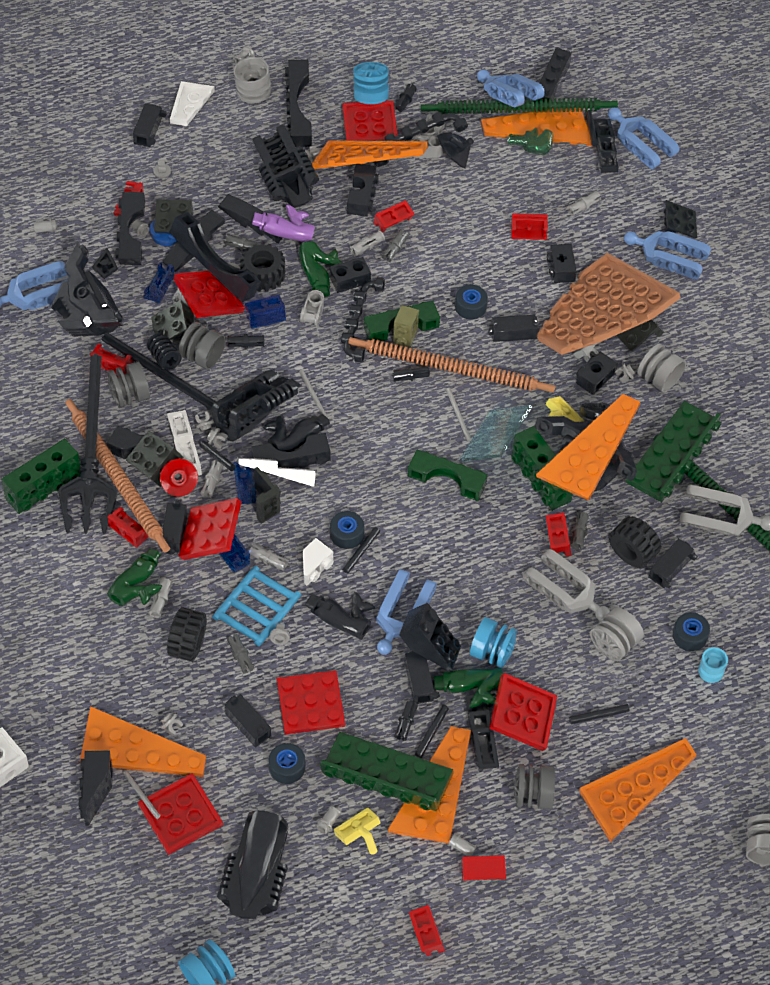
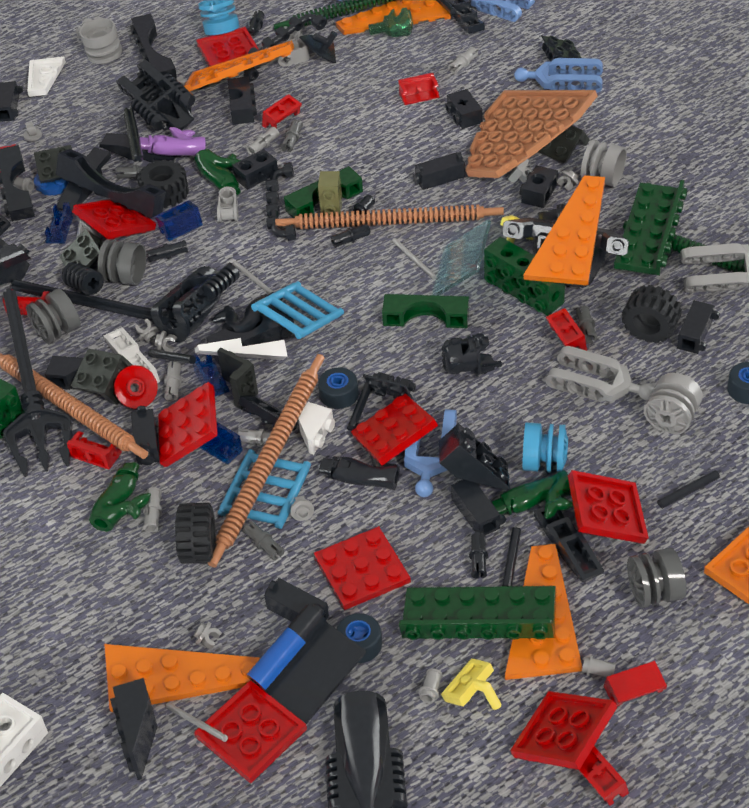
camera: 10 degrees left, 10 degrees down
(238, 773) = (306, 663): none -> black door
(250, 206) = (133, 135): none -> black axle
(266, 581) = (266, 460): none -> nougat hose
(281, 536) = (261, 408): none -> black plate
(332, 423) = (286, 293): none -> dark azure bar
(377, 586) = (394, 429): none -> red plate
(386, 537) = (384, 384): none -> black hinge
(413, 888) = (563, 729): none -> red plate
(434, 344) = (364, 204): none -> black pin
(466, 533) = (465, 355): none -> black helmet
(471, 302) = (387, 161): black wheel -> none

